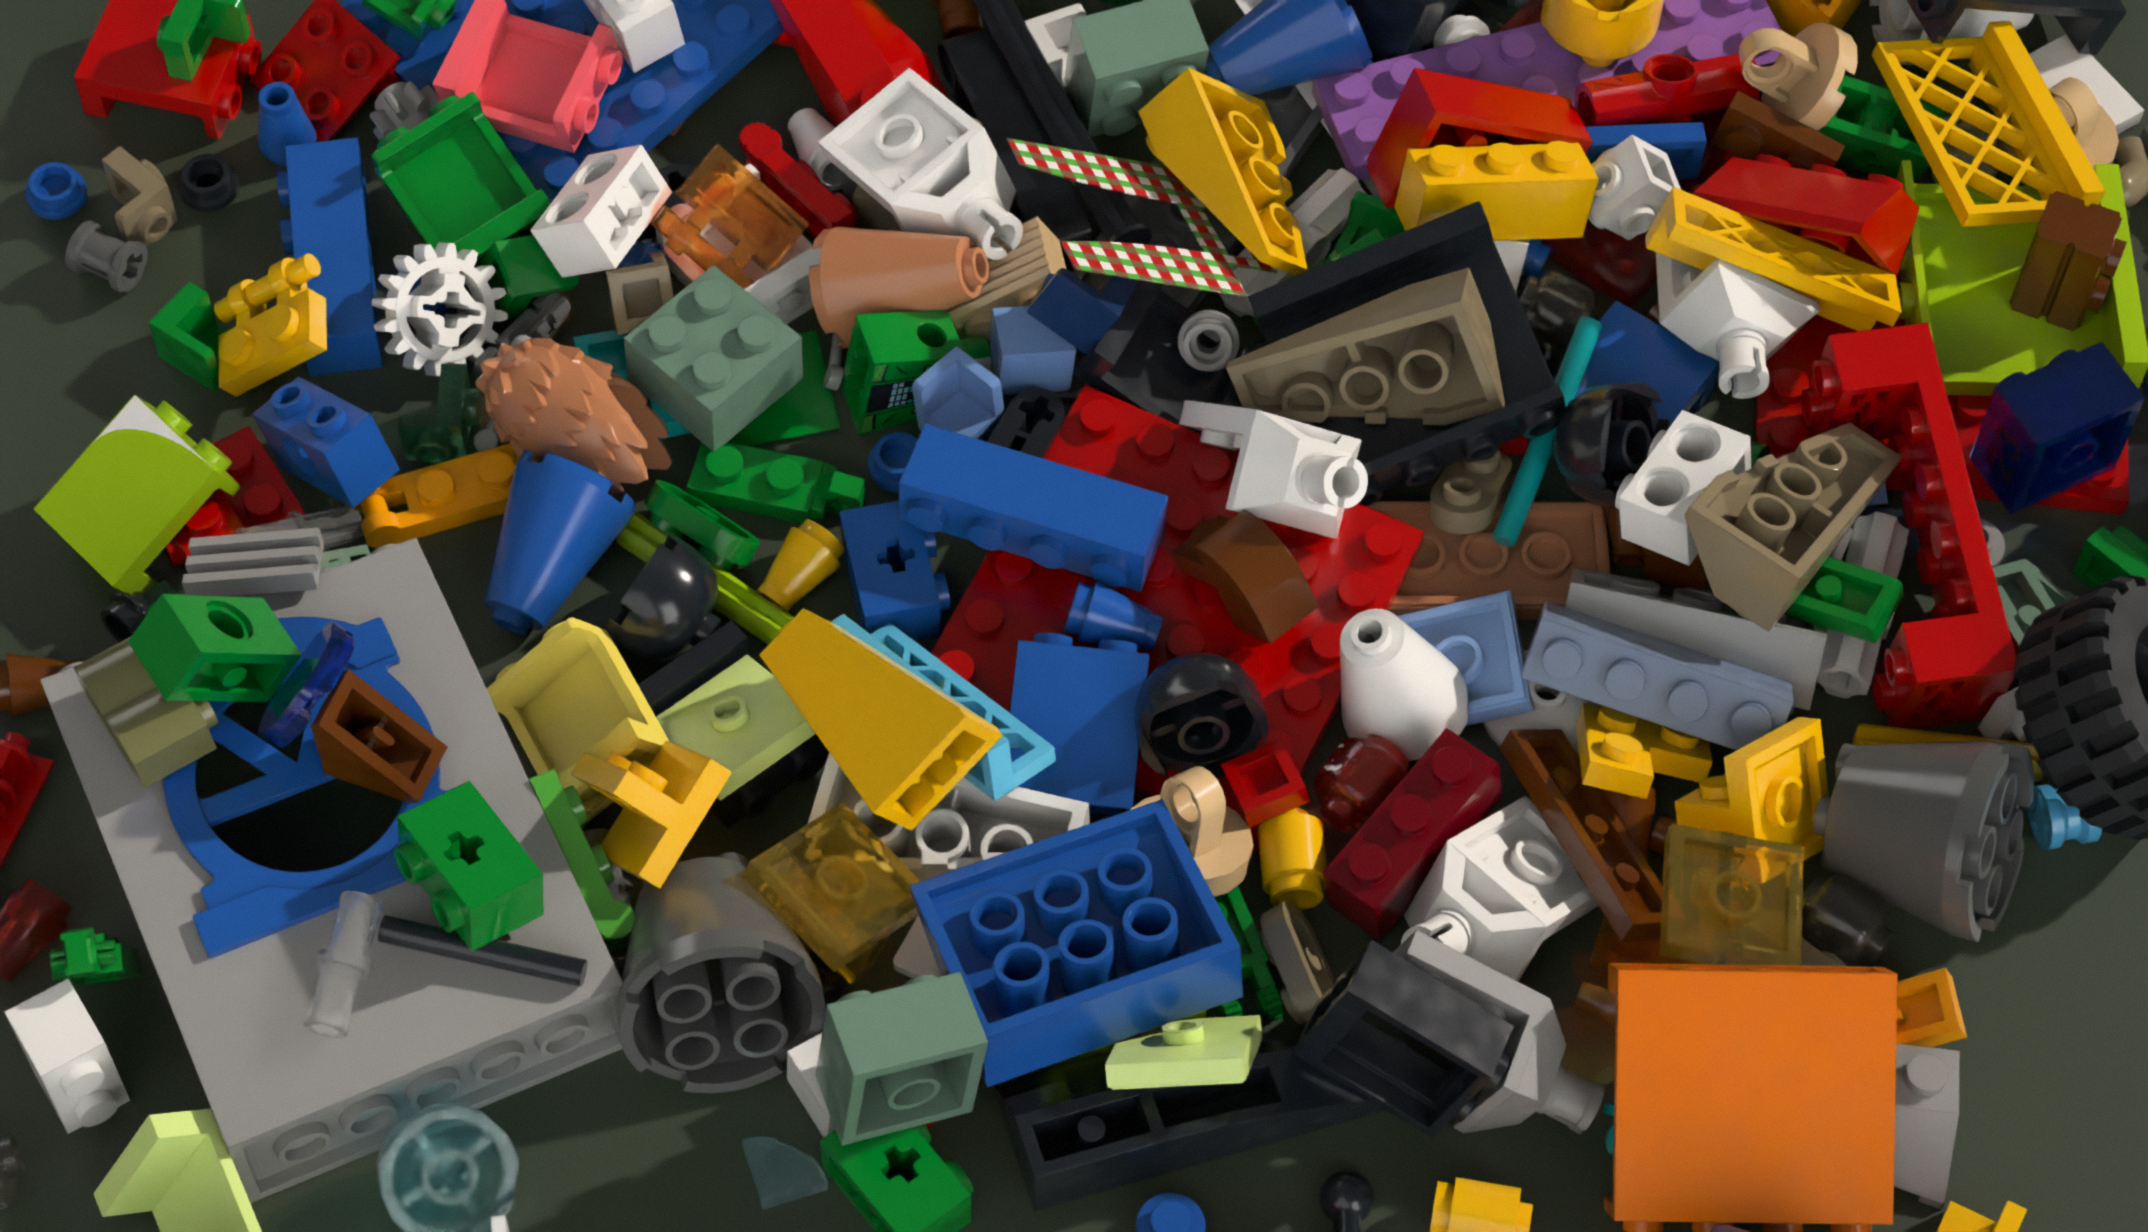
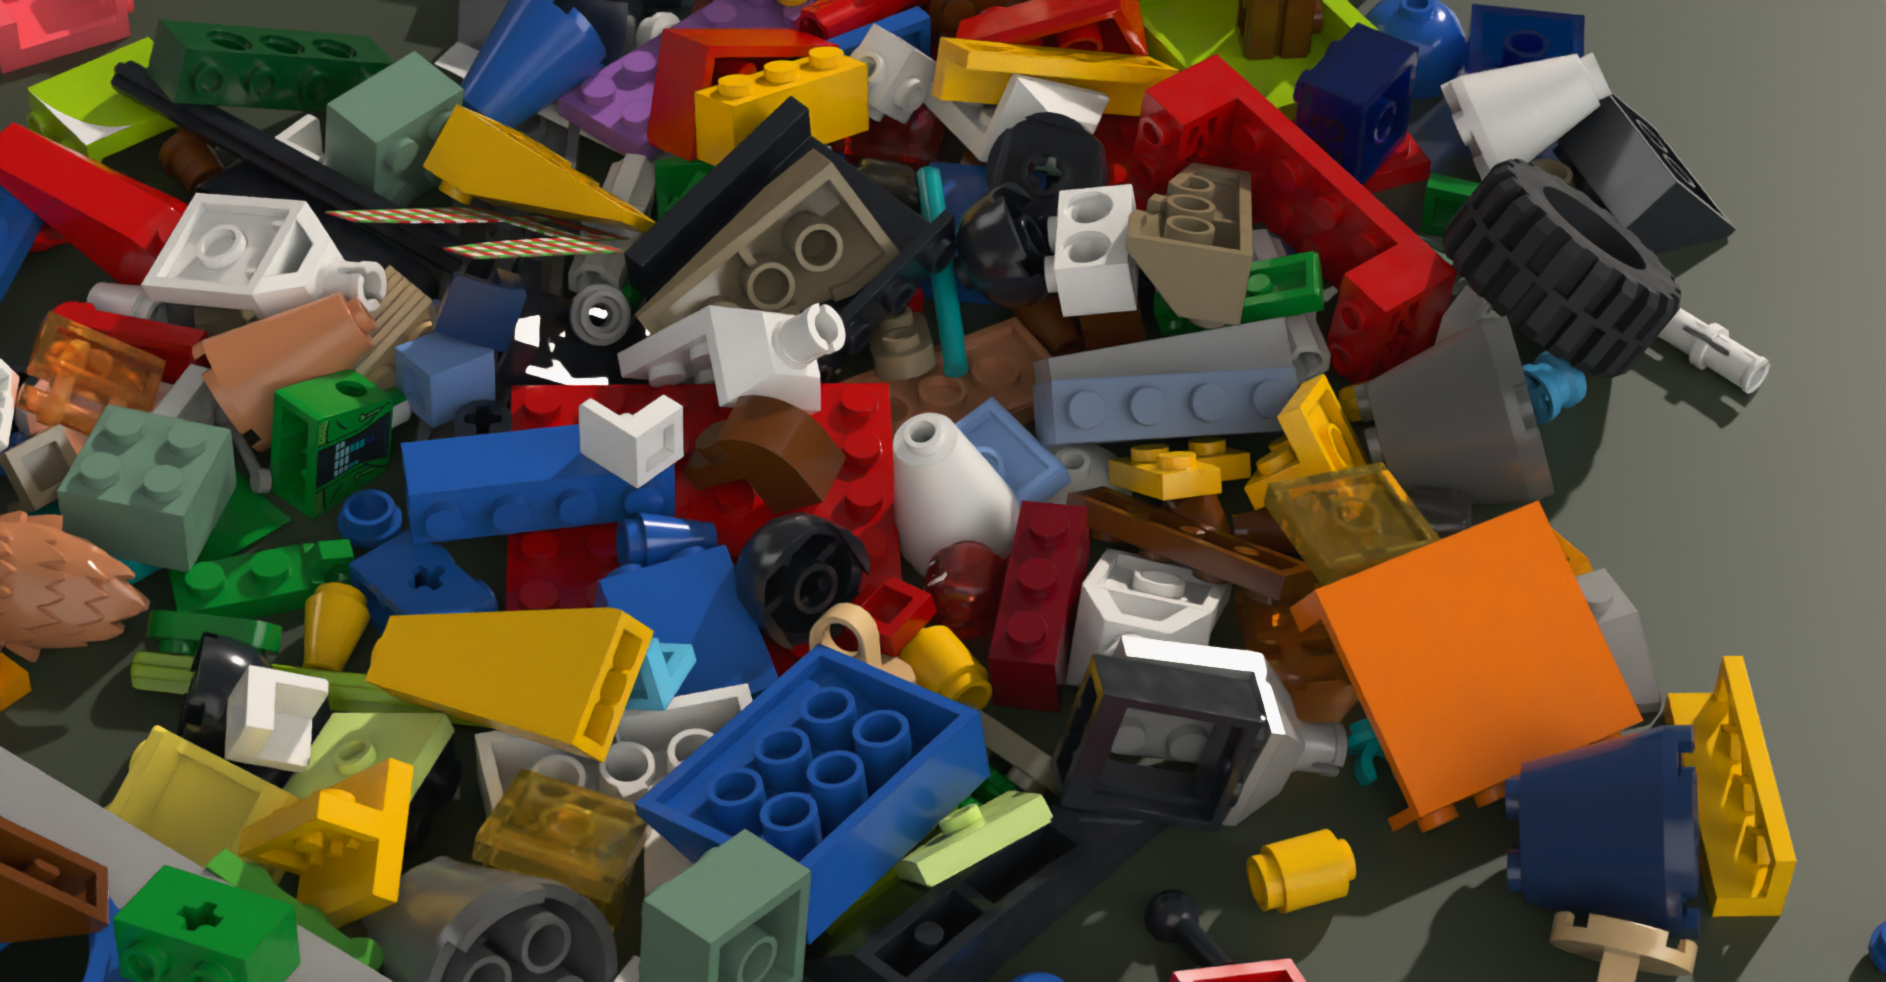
camera: 30 degrees left, 15 degrees down
(550, 539) = (75, 687): blue cone -> none
(675, 652) = (273, 718): none -> white panel
(959, 396) = (400, 417): medium blue panel -> none
(1116, 518) = (635, 444): none -> white panel
(1700, 340) = (1031, 143): none -> black plate

